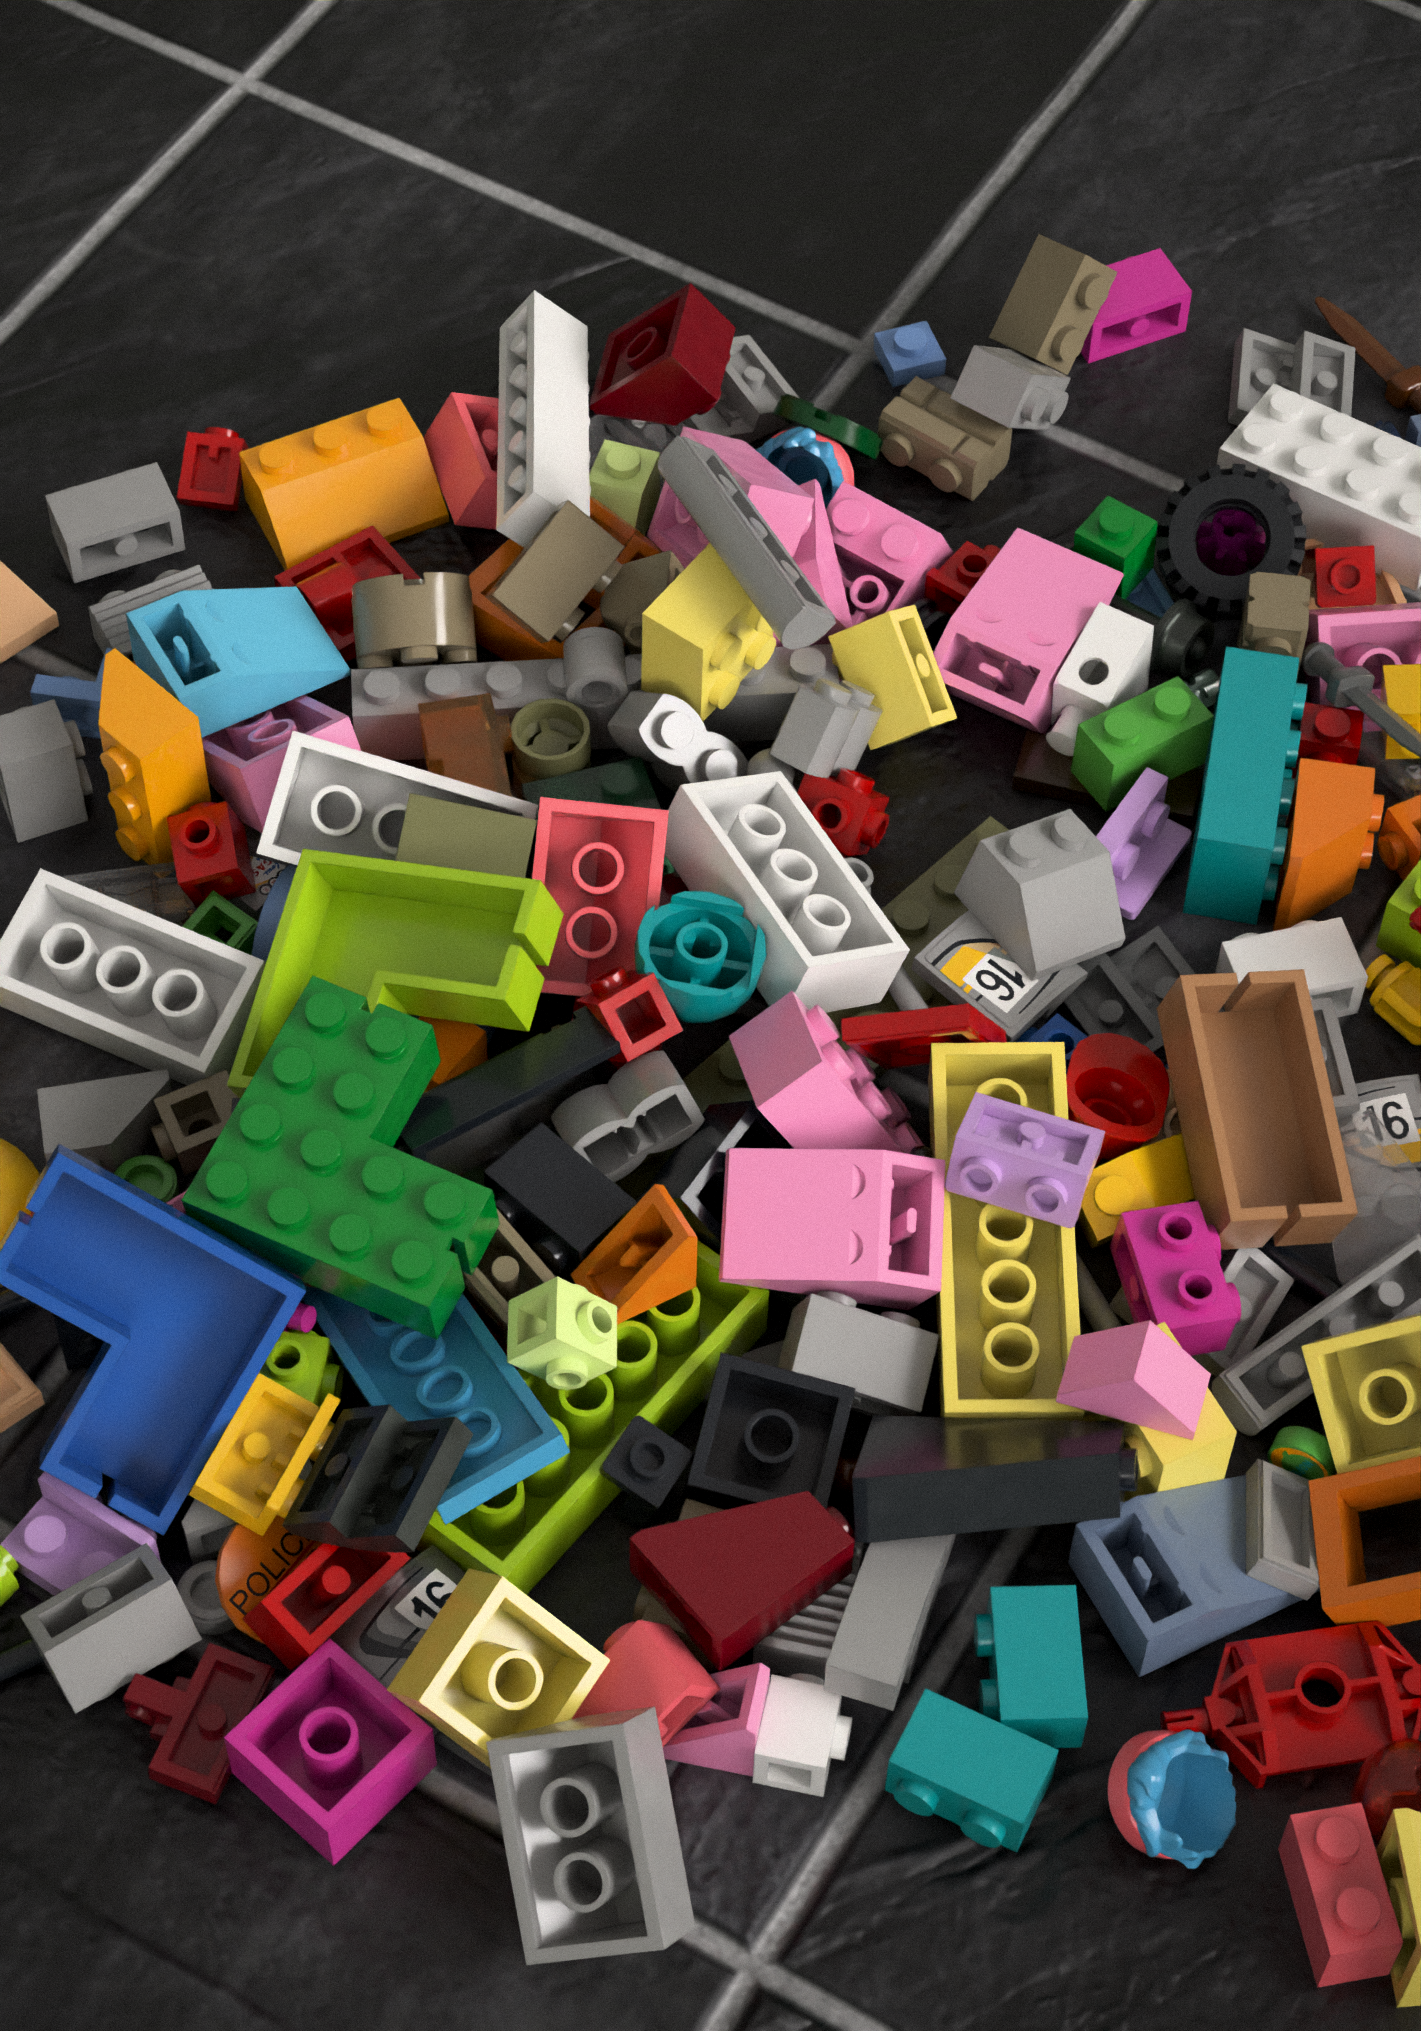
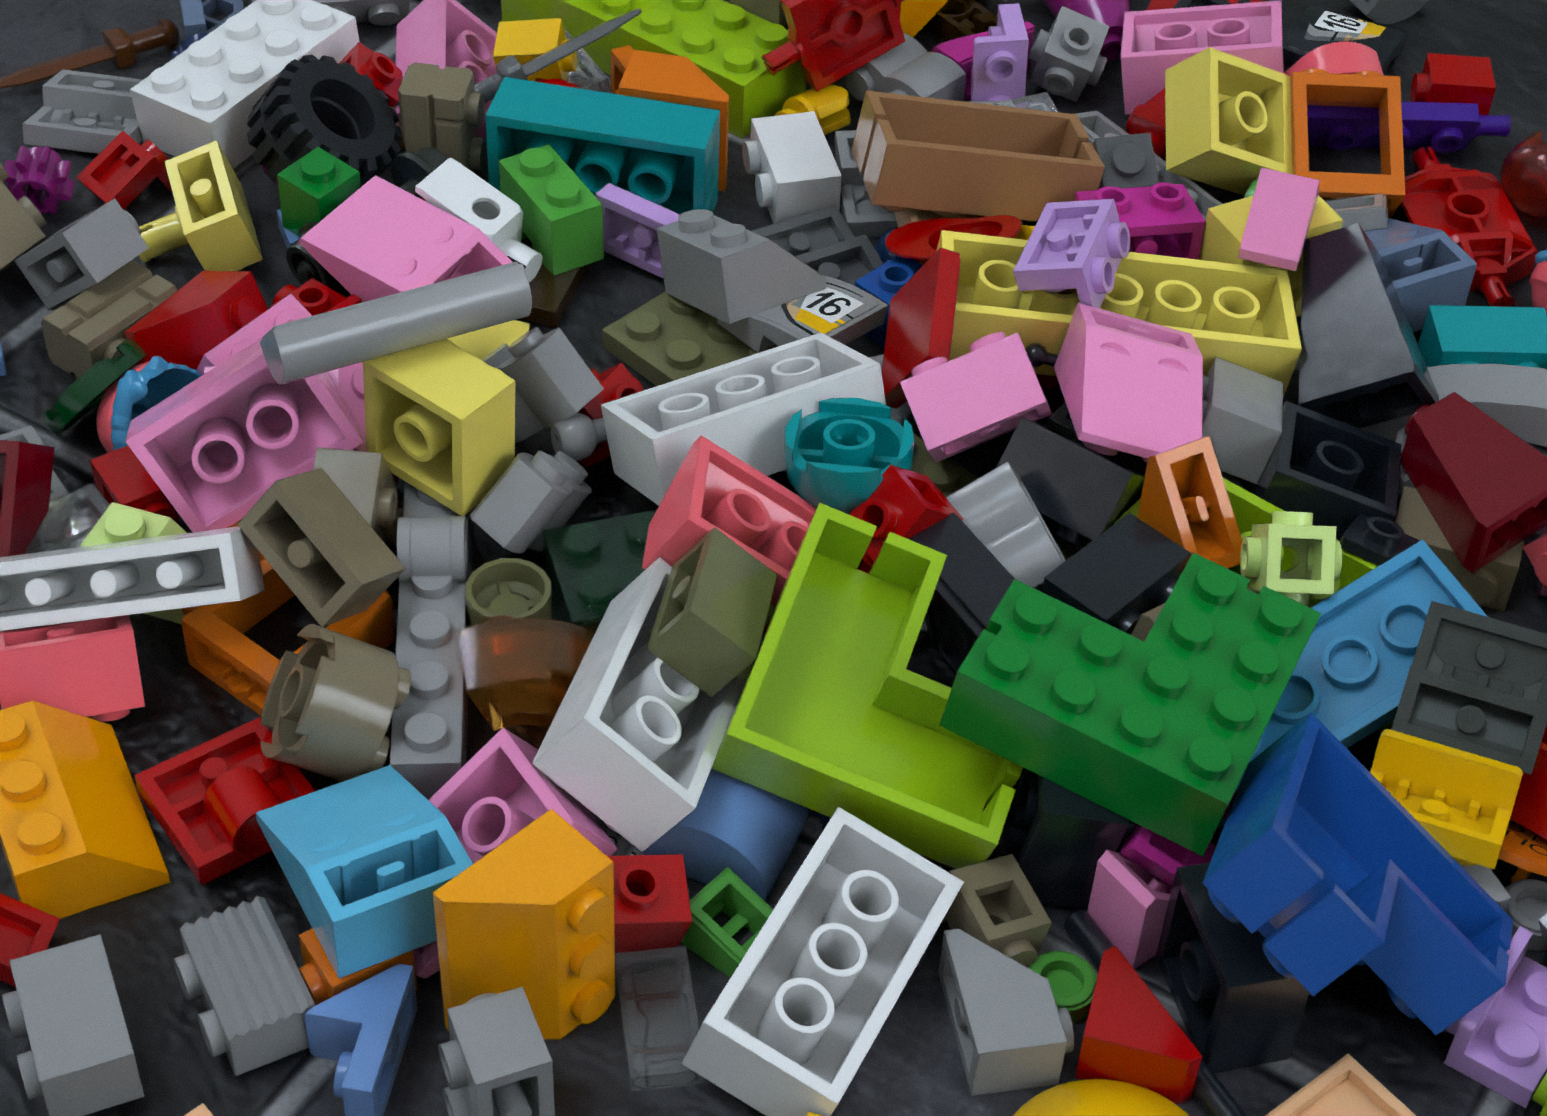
camera: 90 degrees left, 10 degrees down
(944, 493) = (199, 317): none -> red slope
(1125, 465) = (208, 213): none -> light yellow brick
(1150, 351) = (40, 177): none -> magenta gear
(1185, 415) = (125, 170): none -> red bracket
(1275, 1270) = (1127, 161): none -> dark grey brick

